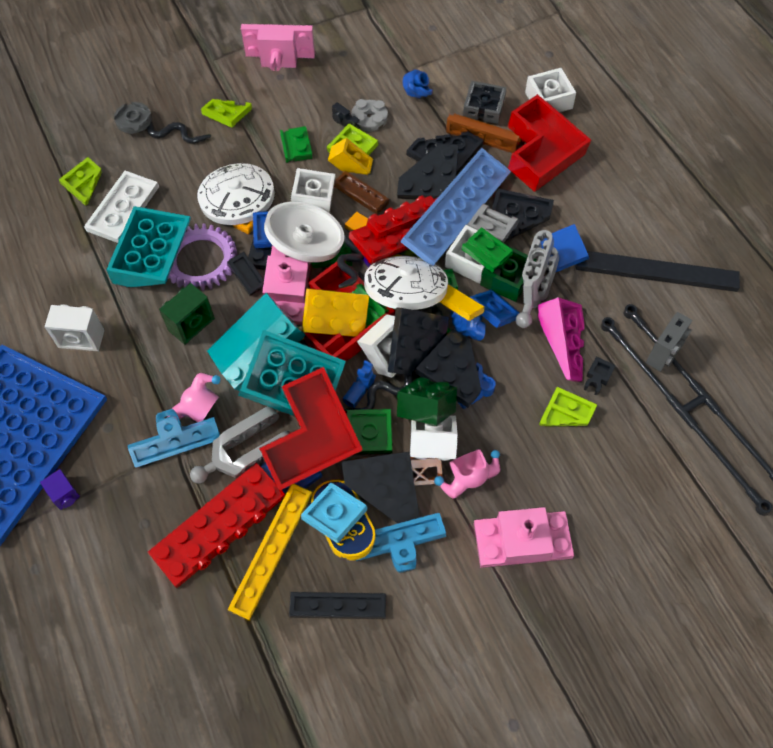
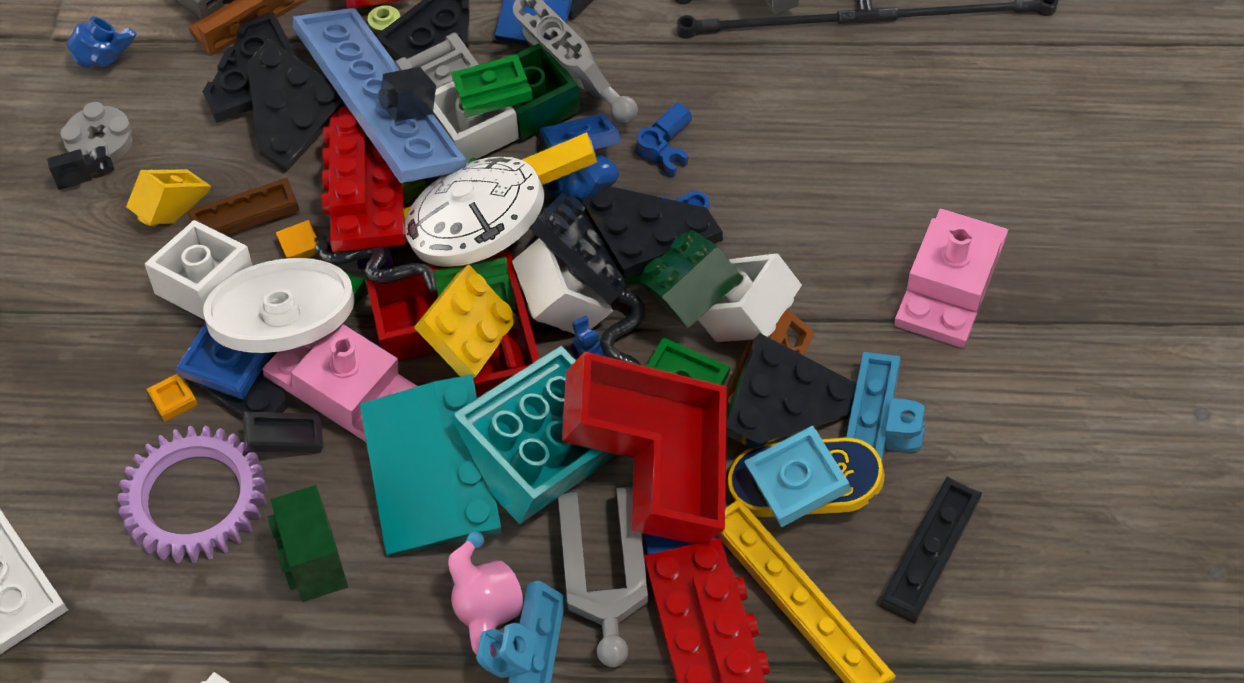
camera: 60 degrees left, 5 degrees down
(147, 247) = (130, 553): teal slope -> none
(235, 193) = (106, 386): white dish -> none
(296, 144) = (71, 260): green plate -> none
(358, 137) = (123, 172): lime wing -> none
(455, 215) = (407, 94): none -> black brick
(469, 472) = (823, 288): bright pink piece -> none
(514, 185) = (382, 17): none -> yellowish green plate
(517, 344) = (654, 141): none -> blue bar
(563, 325) = (654, 73): dark pink wedge -> none
(567, 410) = (791, 133): lime wing -> none
(599, 374) = (759, 69): black plate -> none

